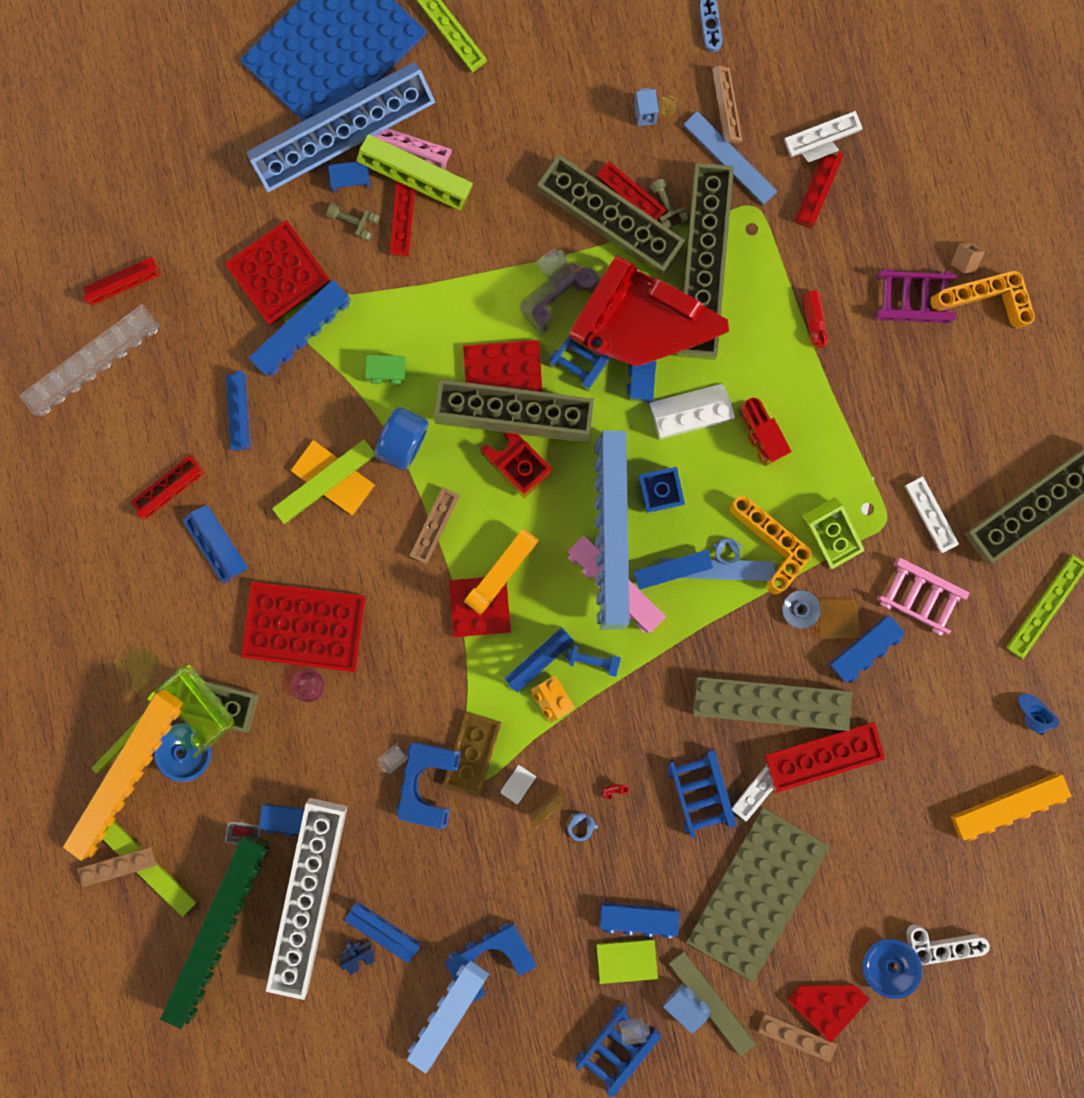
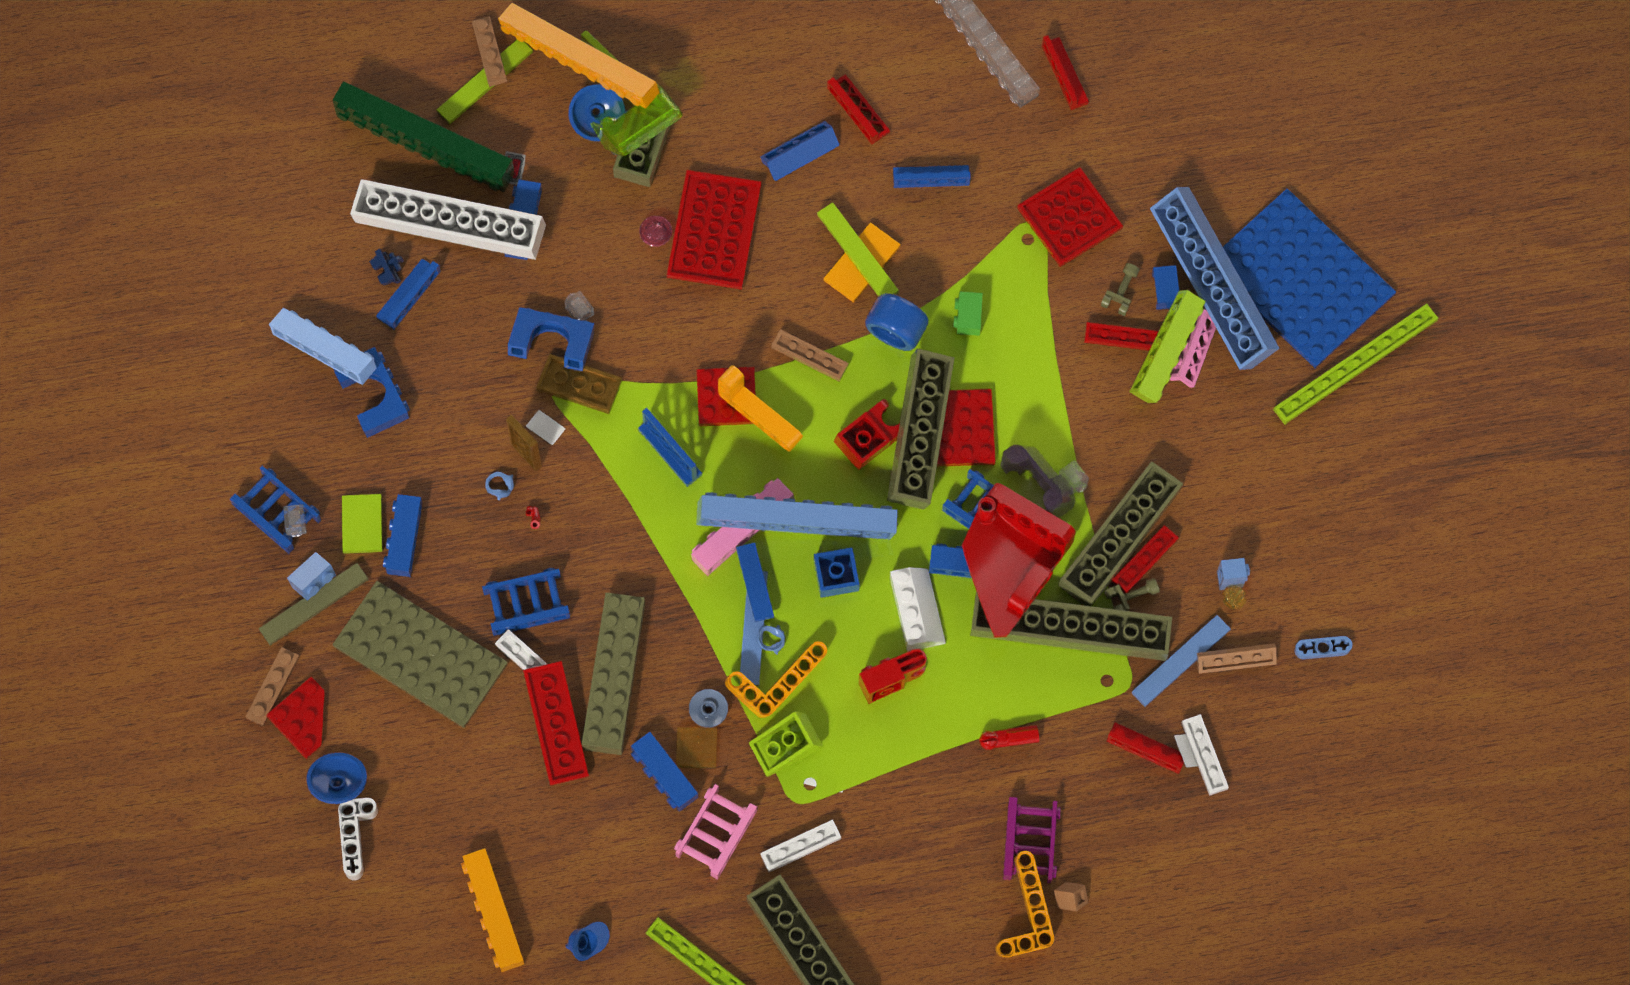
camera: 85 degrees right, 15 degrees down
(300, 328) = (1012, 235): blue brick -> none
(552, 699) = (630, 461): light orange bracket -> none
(609, 664) = (661, 502): blue fence -> none

